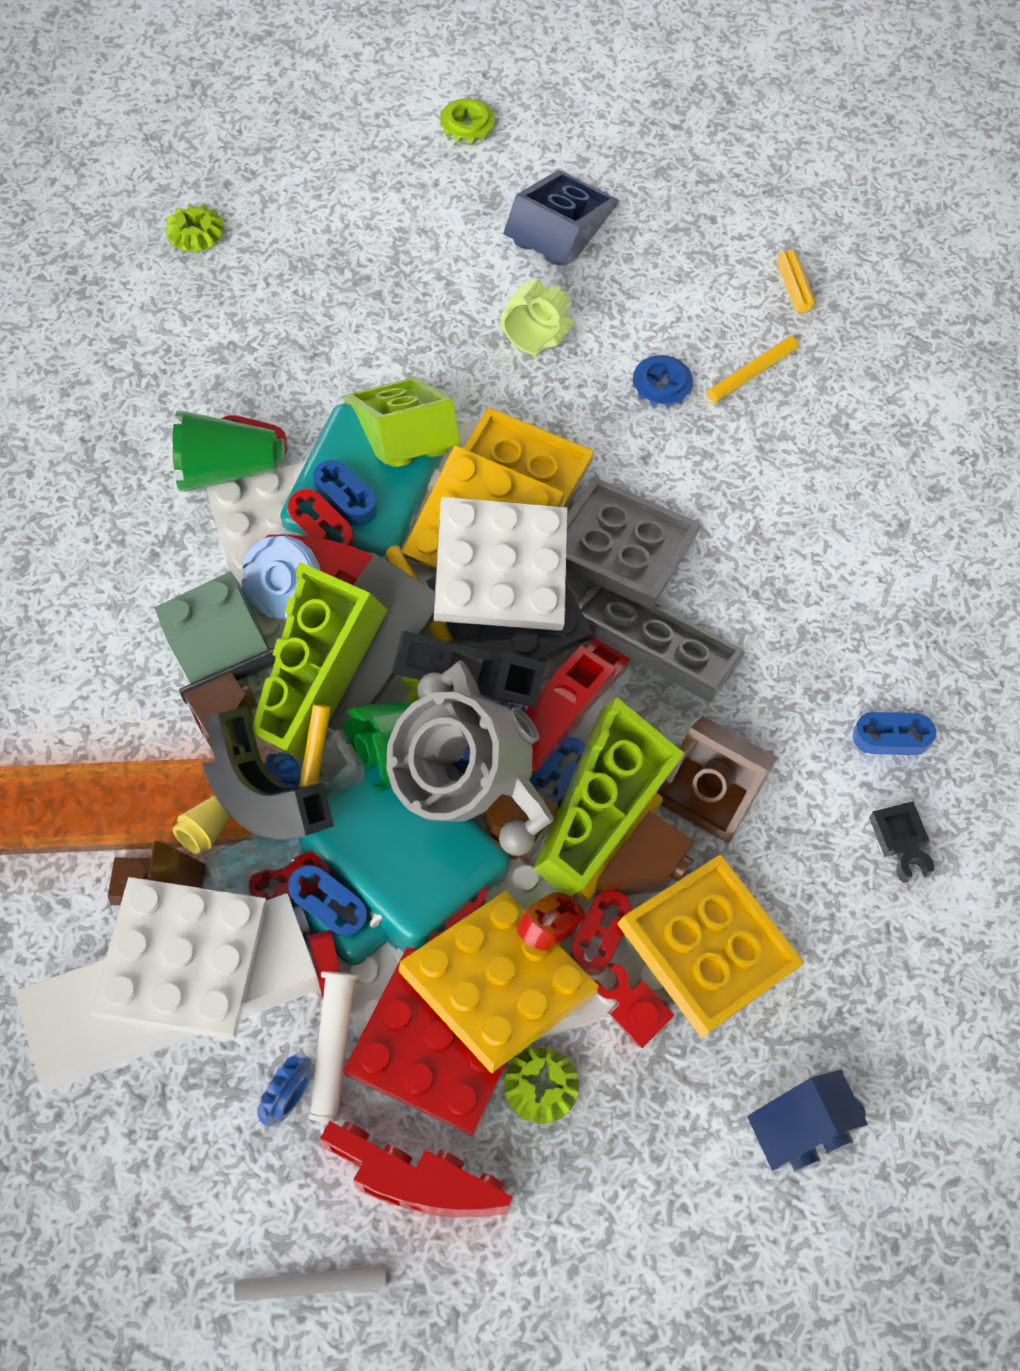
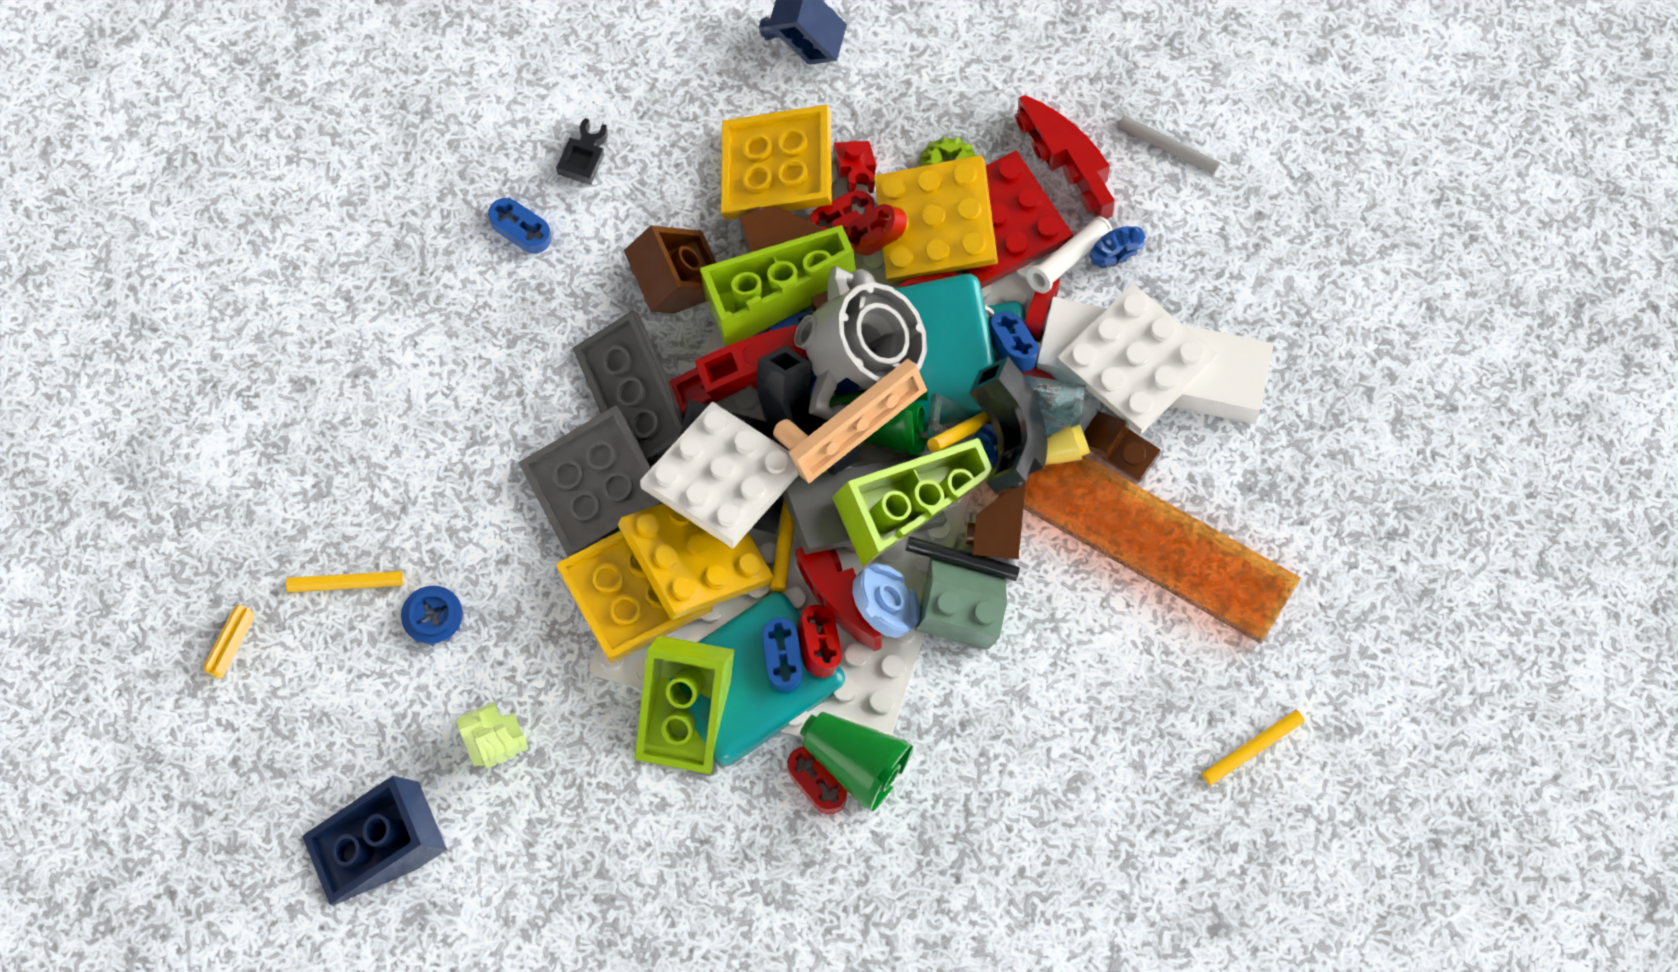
camera: 140 degrees left, 5 degrees up
(424, 616) = (852, 424): none -> light nougat piece

